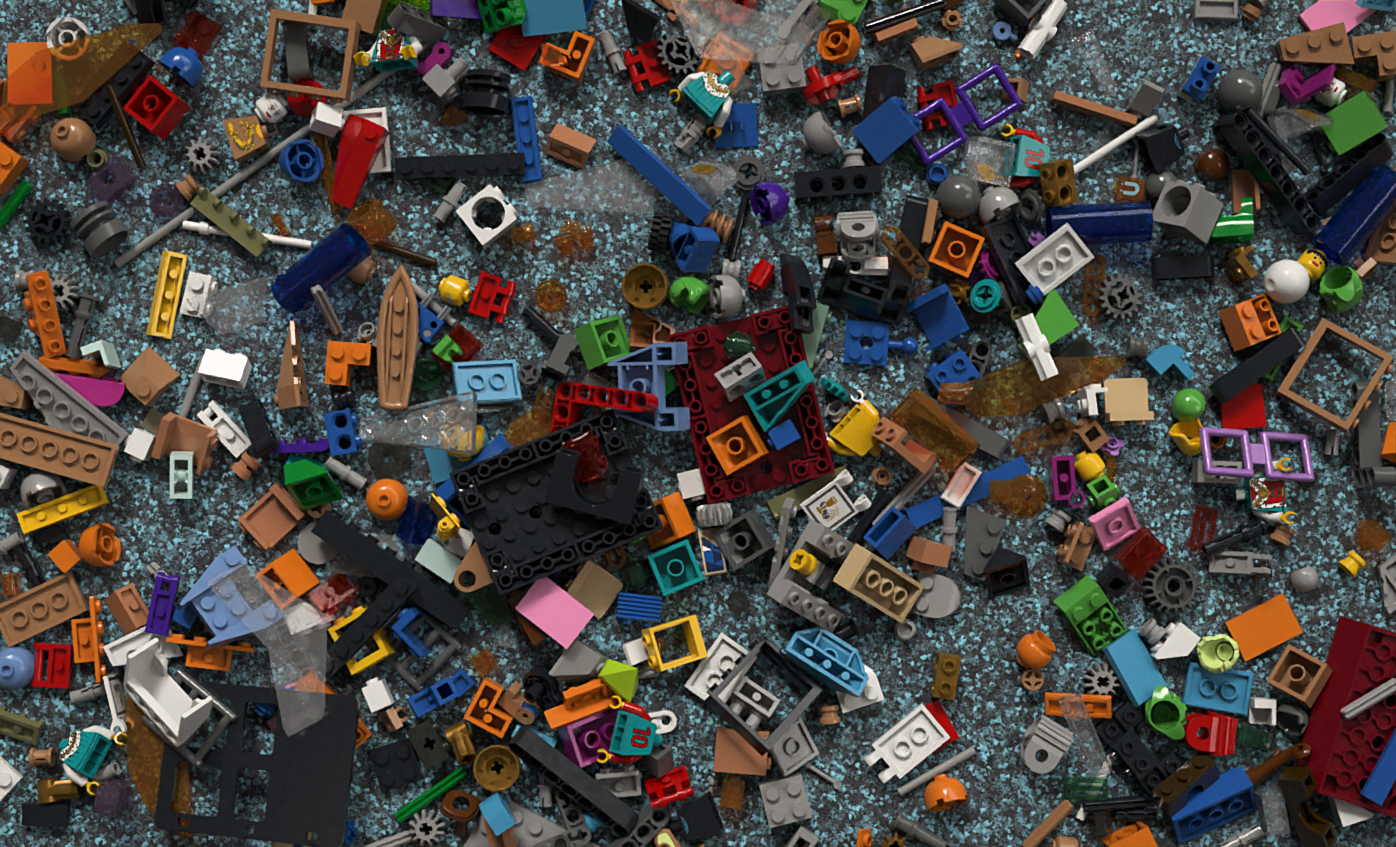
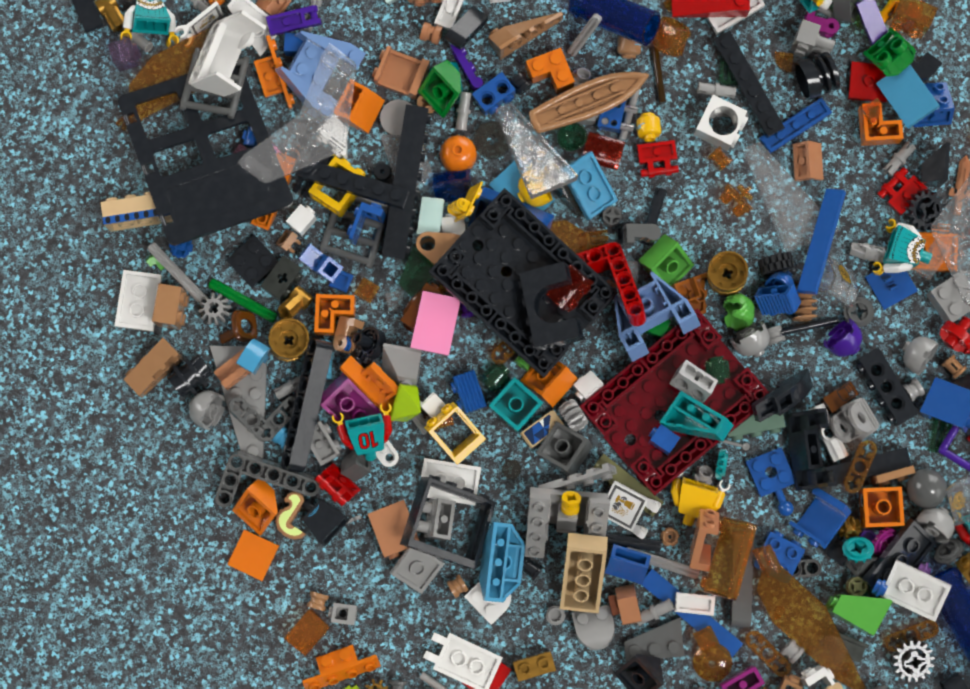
camera: 65 degrees right, 5 degrees down
(331, 593) = (364, 146): clear red bracket -> none
(447, 349) = (599, 142): bright green tile -> none
(550, 295) = (682, 203): clear orange hair -> none
(594, 587) = (468, 348): tan bracket -> none
(732, 792) = (357, 538): clear orange brick -> none
(737, 445) = (638, 406): orange slope -> none
(760, 275) = (781, 361): red brick -> none
(785, 799) = (371, 583): light grey brick -> none
(836, 783) = (403, 621): light grey hinge -> none
(936, 174) = (935, 462): blue plate -> none
(1036, 347) = (838, 607): white piece -> none

